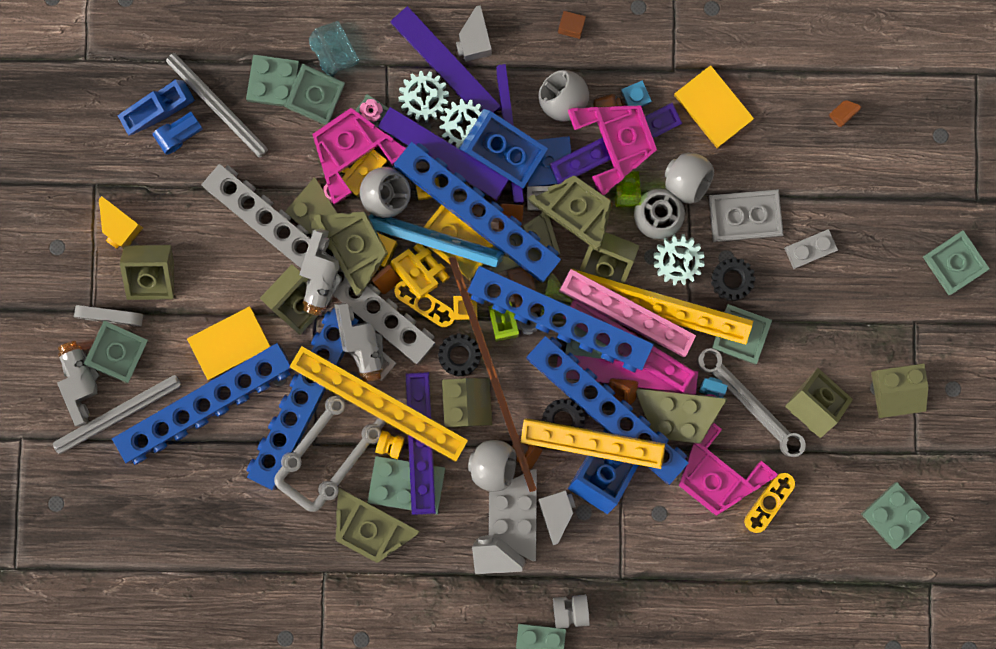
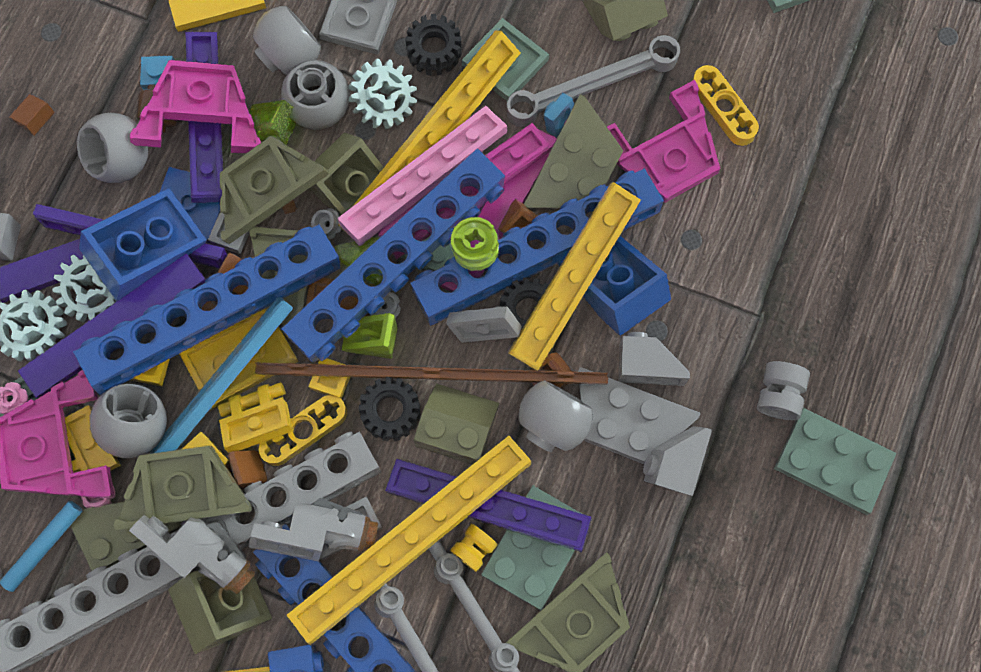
camera: 70 degrees left, 10 degrees down
(288, 172) = (41, 546): none -> dark azure piece
(537, 394) = (484, 324): none -> light grey plate
(568, 255) = (322, 217): none -> light grey plate
(580, 376) = (484, 252): none -> lime wheel

